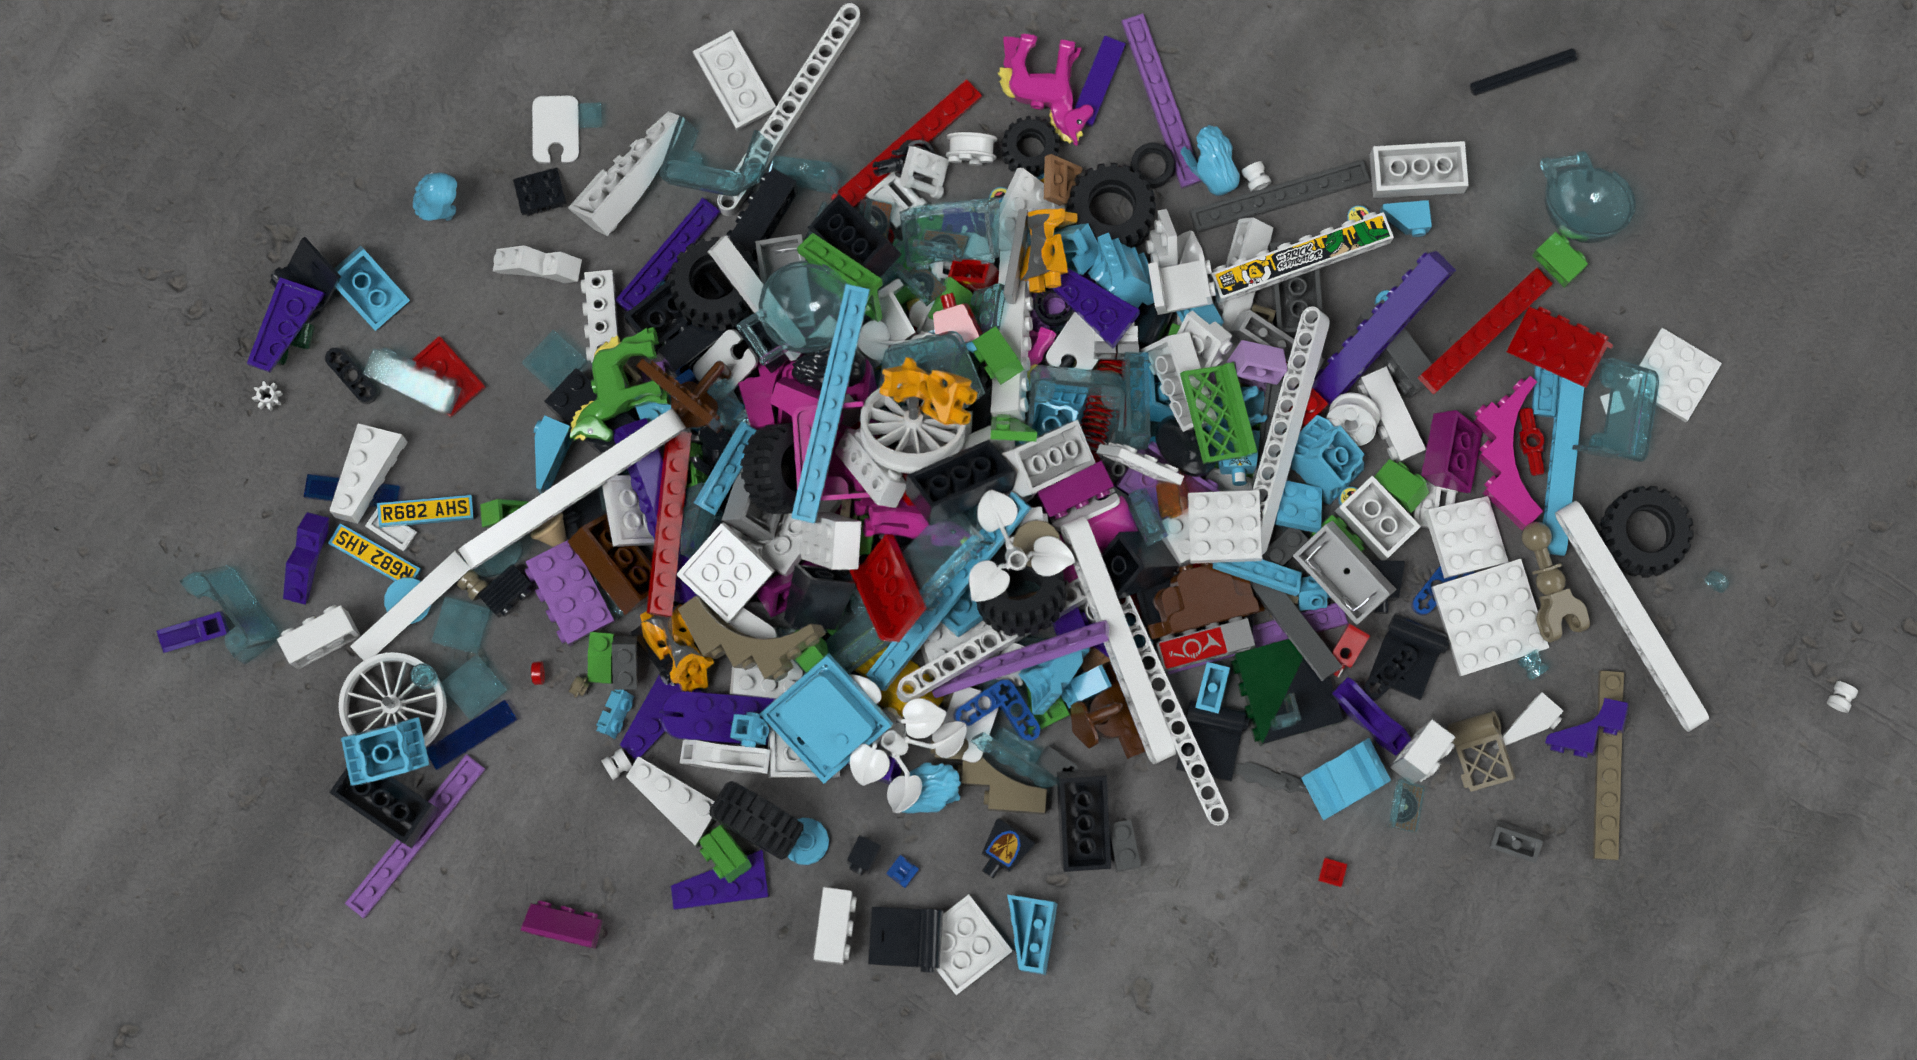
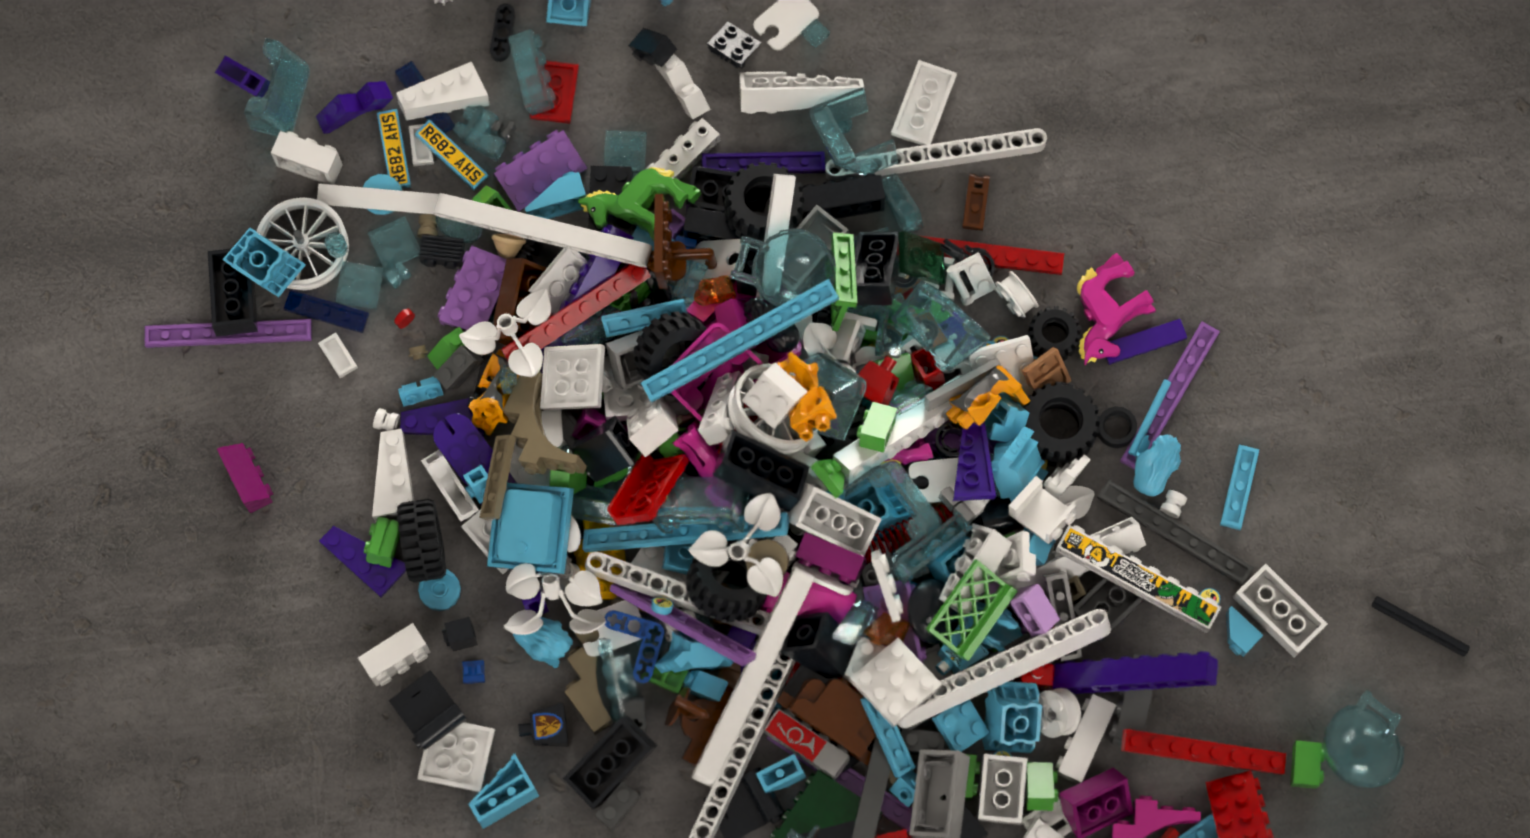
camera: 55 degrees right, 5 degrees down
(424, 470) = (479, 129): none -> clear light blue hips
(483, 260) = (652, 47): none -> black brick
(493, 647) = (393, 278): none -> clear light blue wheel
(505, 448) = (538, 169): none -> medium lavender bracket
(519, 757) = (337, 355): none -> white tile
(678, 596) = (527, 359): none -> white plant
(679, 628) = (507, 379): none -> clear light blue plate
(755, 390) = (714, 291): none -> clear orange piece
(761, 709) = (497, 477): none -> dark tan plate
(859, 112) = (976, 202): none -> reddish brown plate
(874, 196) = (921, 258): none -> clear green tile
(909, 415) = (774, 395): none -> white brick
(992, 664) = (662, 605): none -> tile
(1167, 131) = (1150, 416): none -> medium azure bar
(1286, 112) = (1239, 487): none -> medium azure tile

